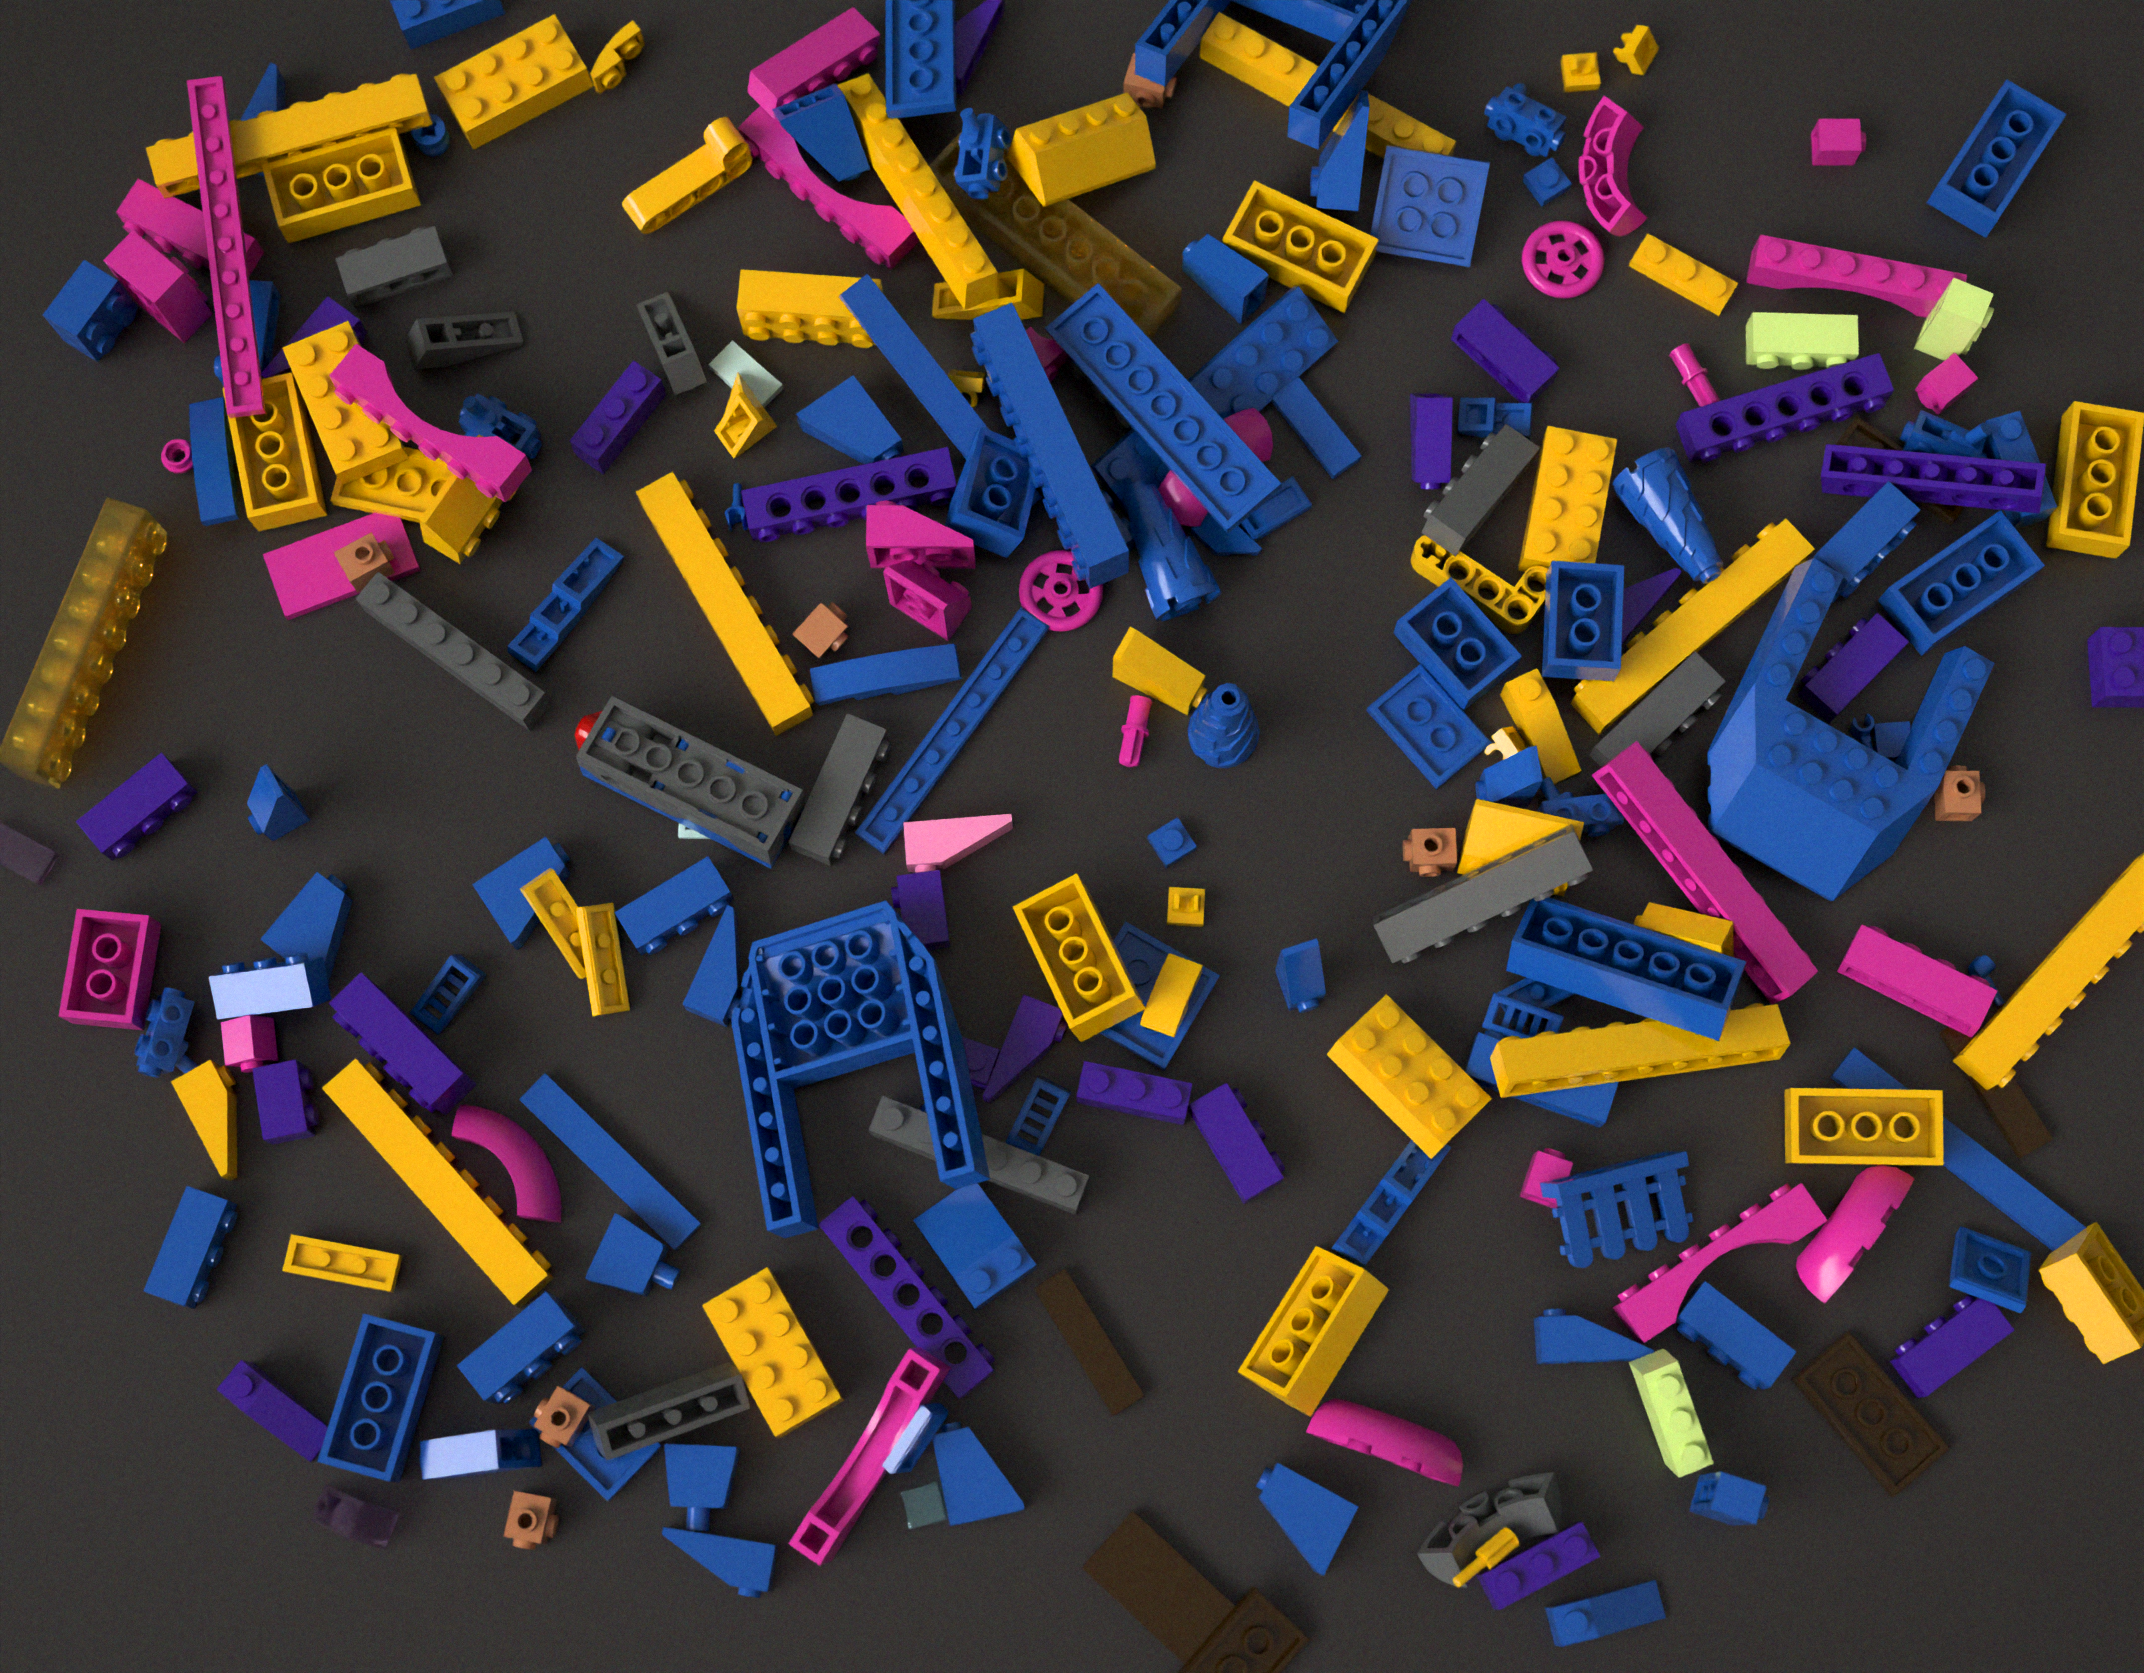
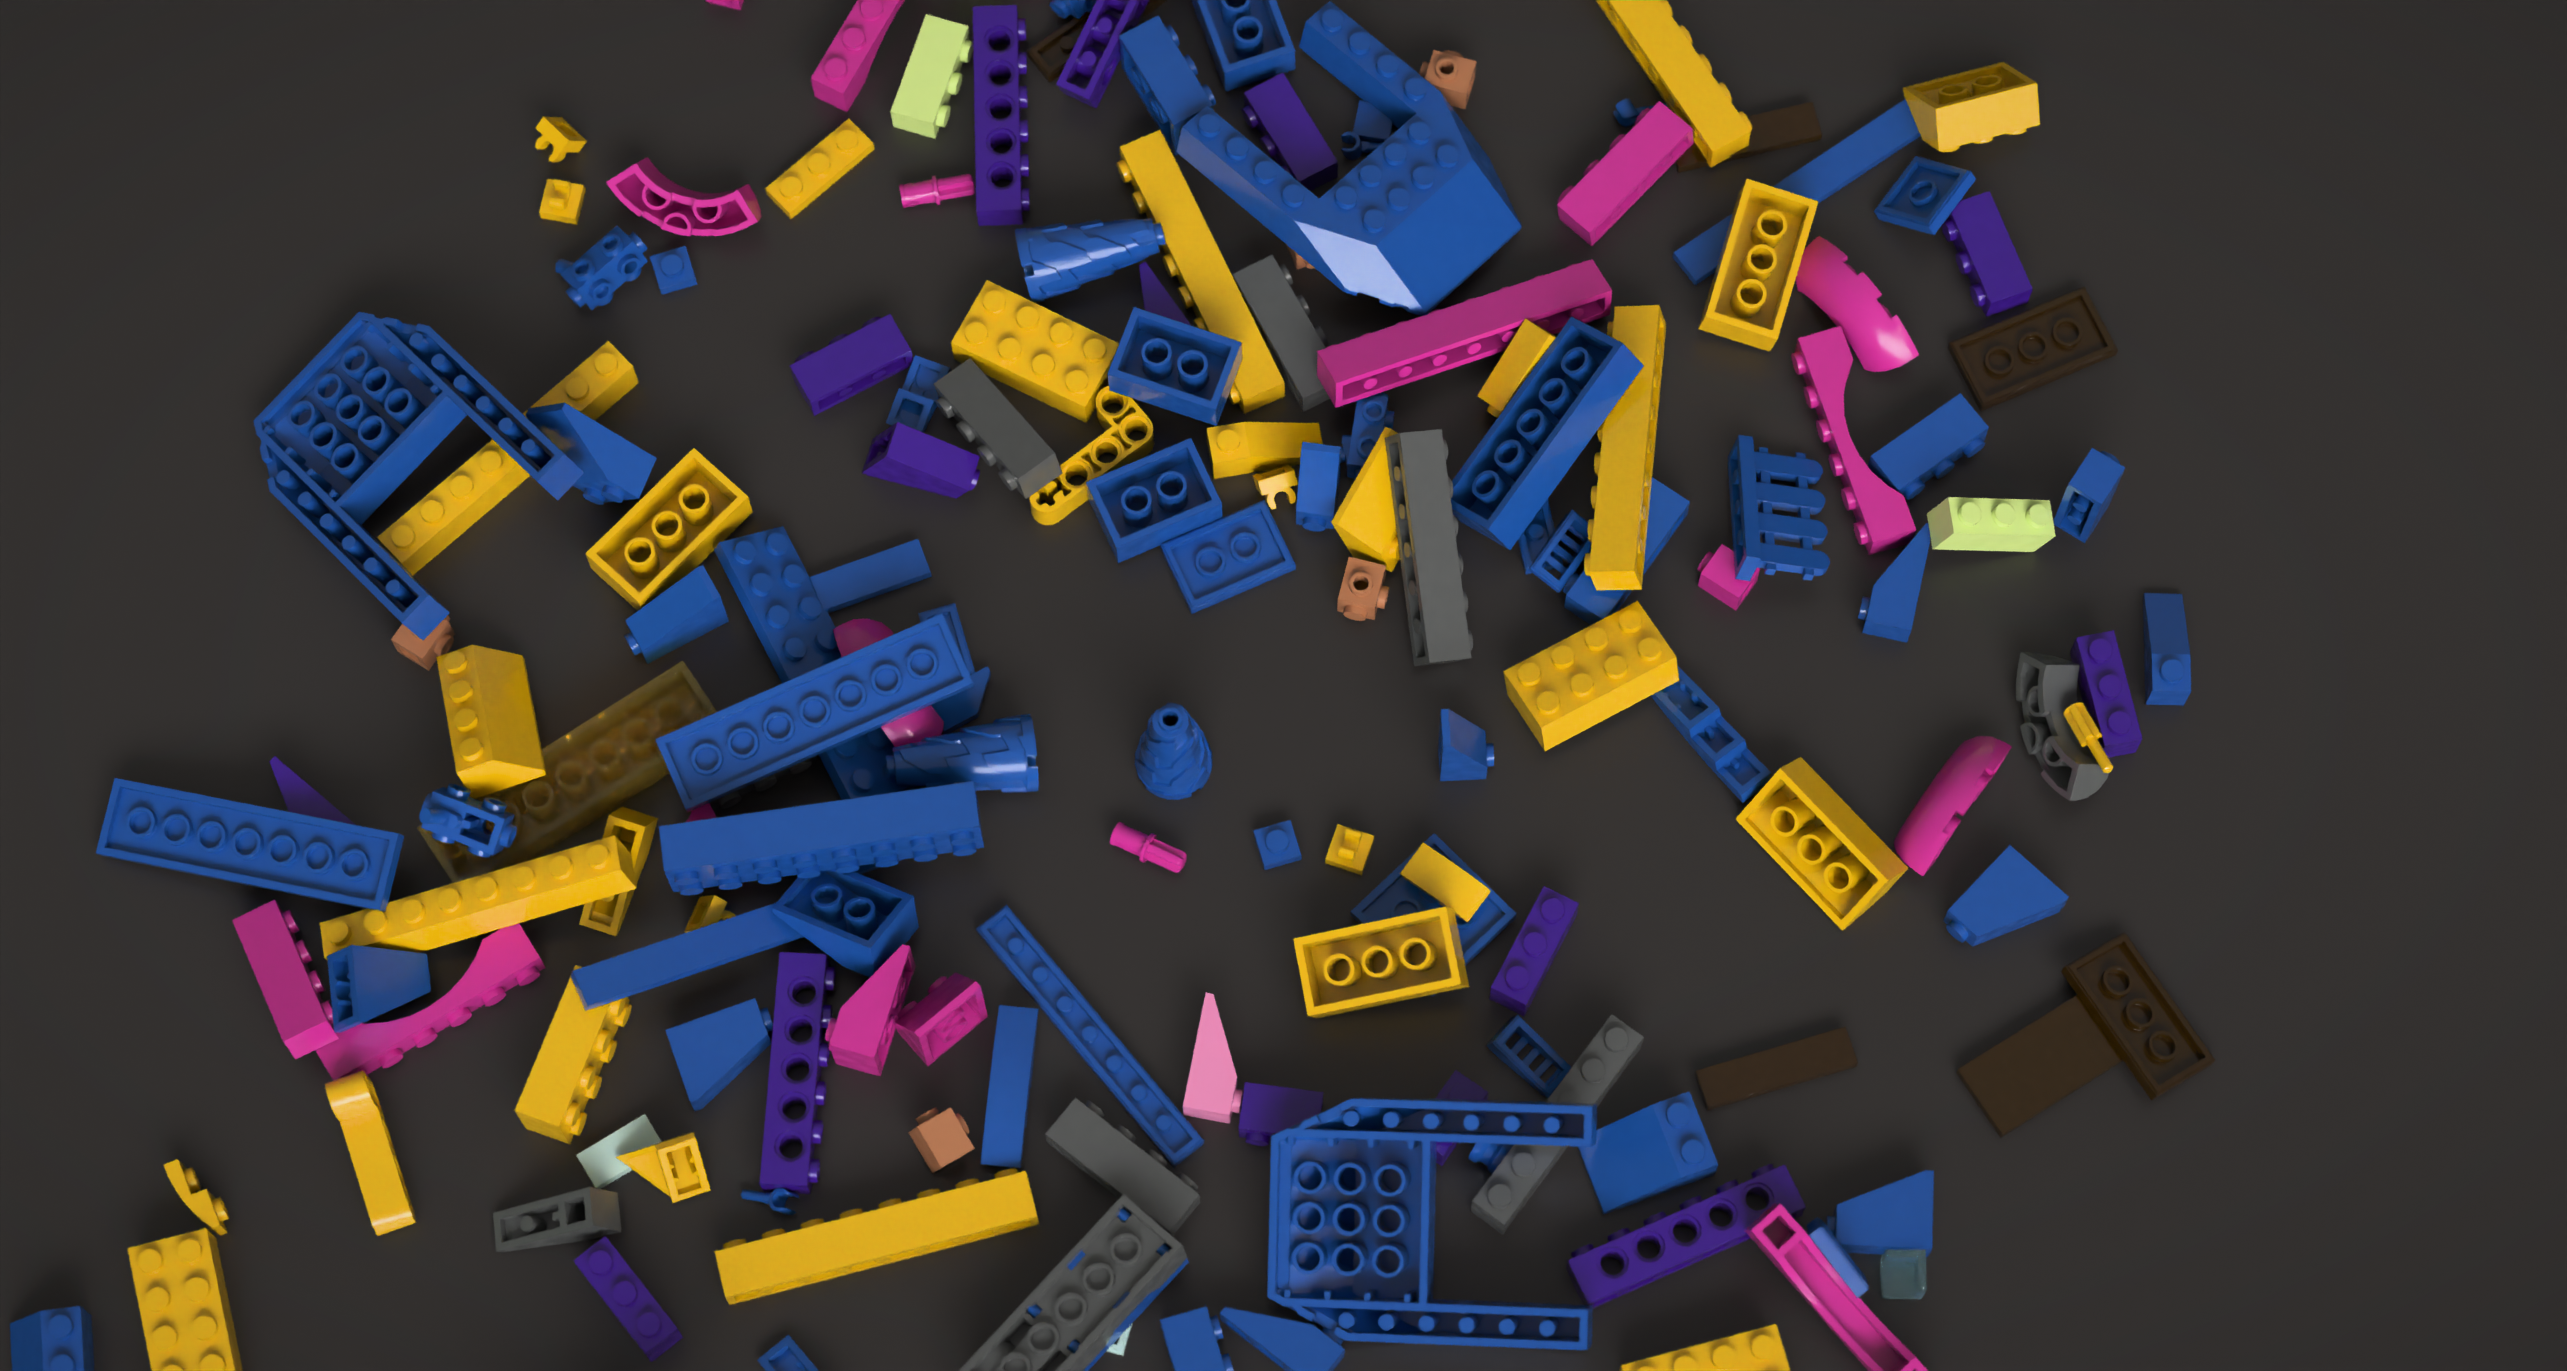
camera: 75 degrees left, 5 degrees down
(1027, 1042) = (1446, 1042): dark purple slope -> none
(1056, 618) = (964, 915): dark pink plate -> none
(1158, 672) = (1095, 805): yellow slope -> none
(1237, 1142) = (1612, 863): dark purple brick -> none
(1429, 205) = (668, 389): blue plate -> none
(1572, 234) = (772, 307): dark pink plate -> none

